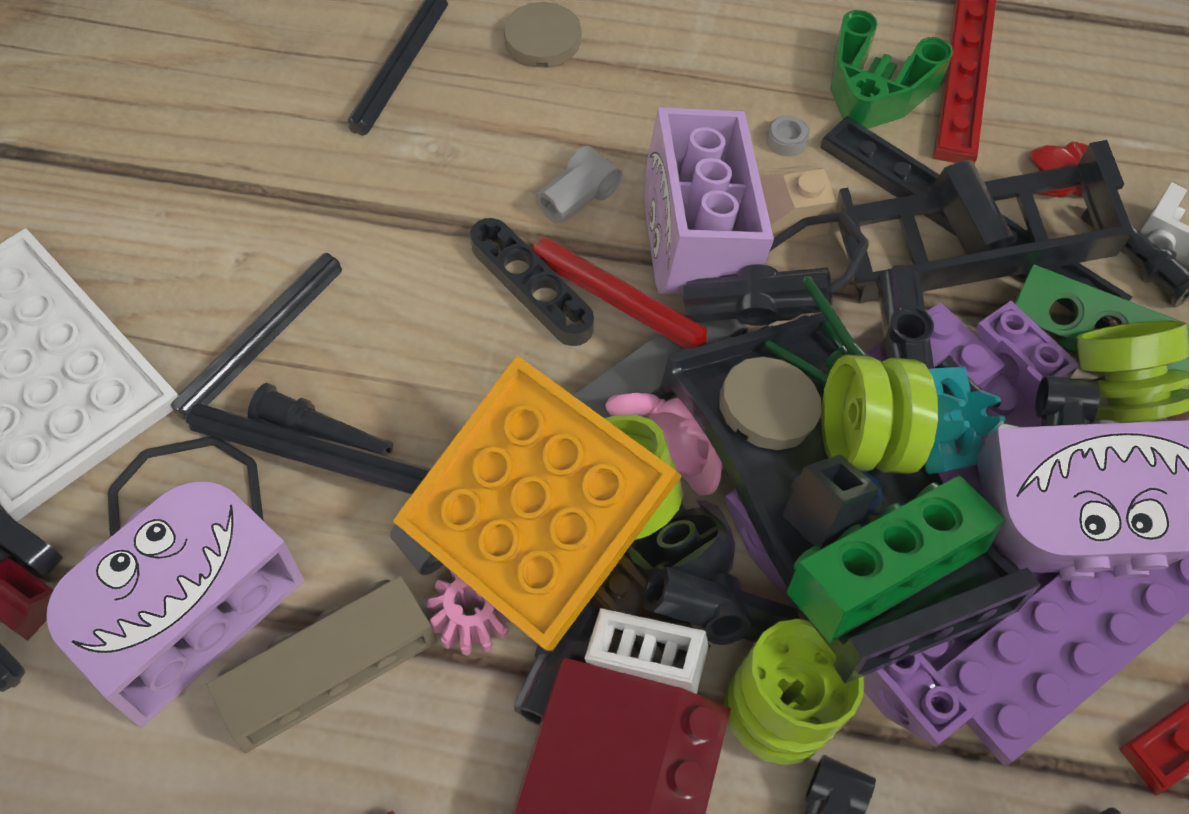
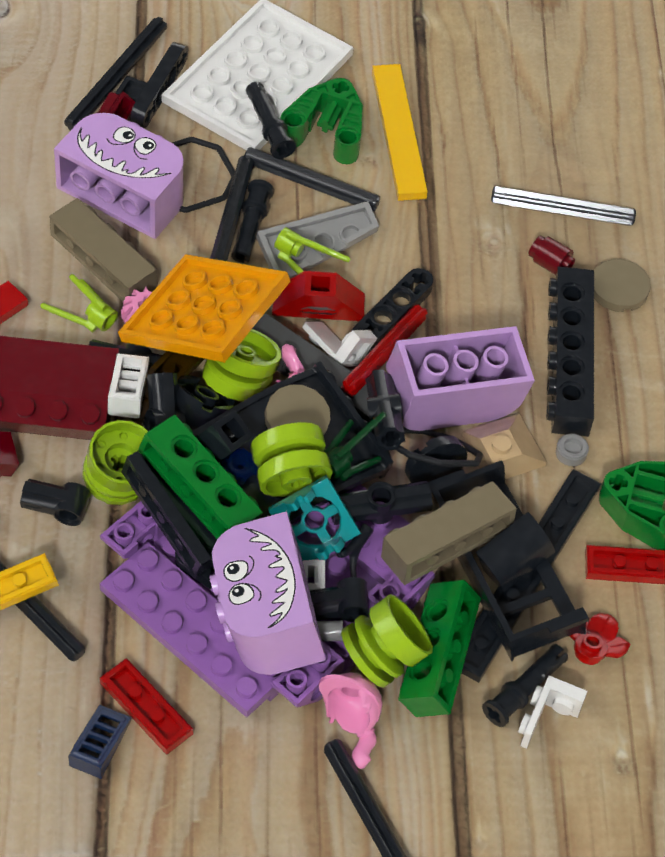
camera: 75 degrees right, 5 degrees down
(154, 268) = (334, 100): none -> green connector
(156, 355) = (273, 128): none -> black pin
(203, 210) = (399, 132): none -> yellow tile
(381, 352) = (331, 229): none -> light grey wing
(399, 369) = (292, 244): none -> lime plant
(452, 688) = (99, 312): none -> lime plant
(485, 84) = (551, 254): none -> dark red brick
(499, 339) = (320, 297): none -> red slope
(586, 177) = (471, 318): light grey piece -> none
(608, 347) = (349, 351): none -> white bracket
(628, 89) = (572, 352): none -> black brick
(819, 251) = (440, 448): none -> black tile
(973, 263) = (447, 532): none -> dark tan brick

